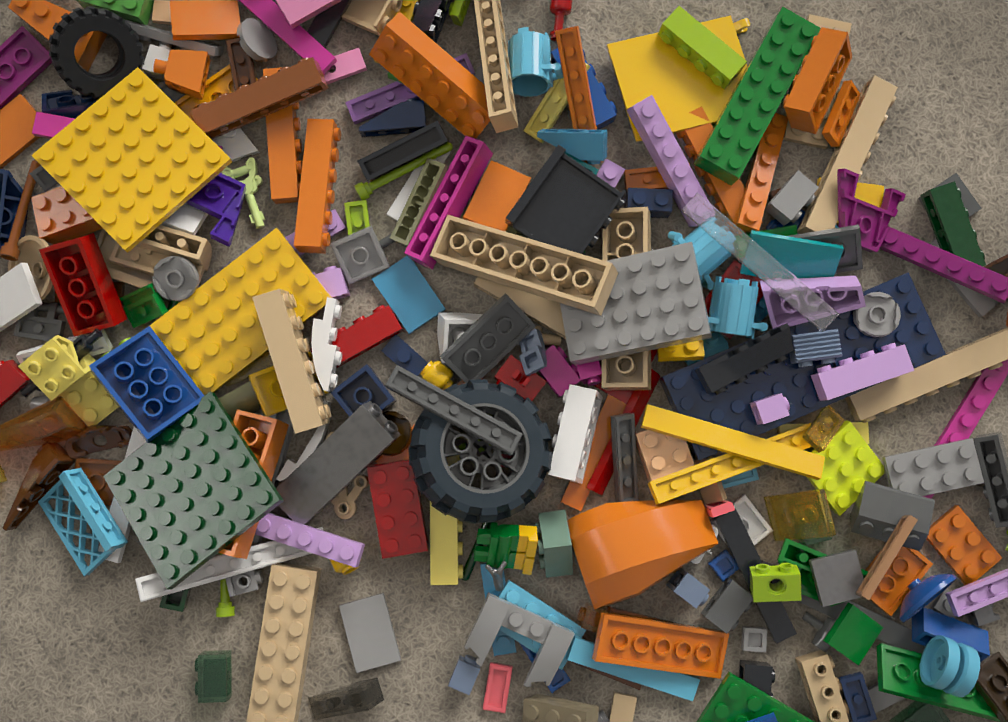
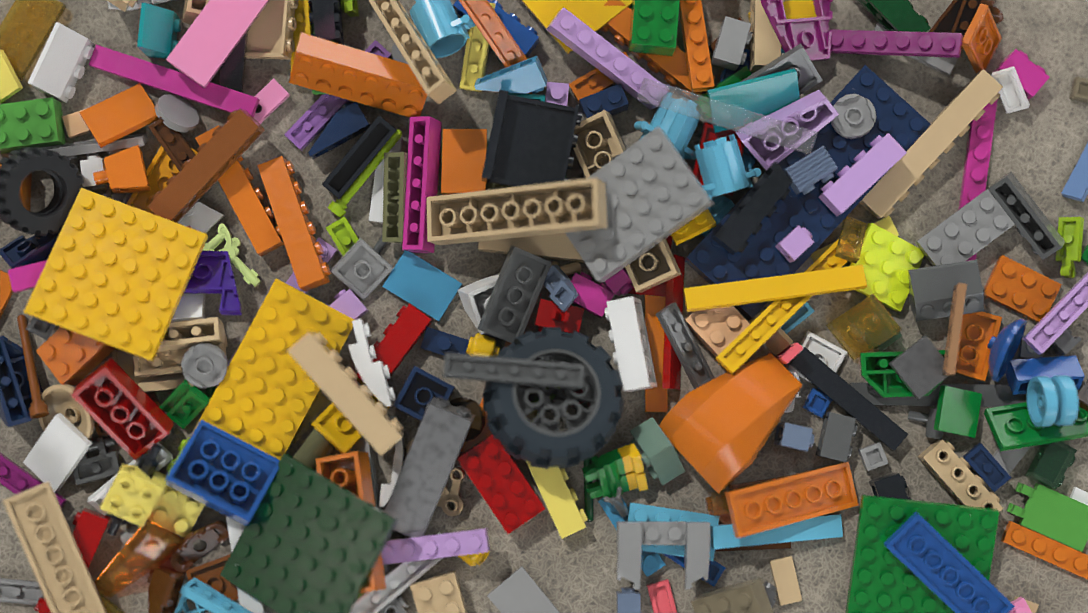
camera: 25 degrees left, 0 degrees up
(785, 590) = (880, 398): lime brick -> none

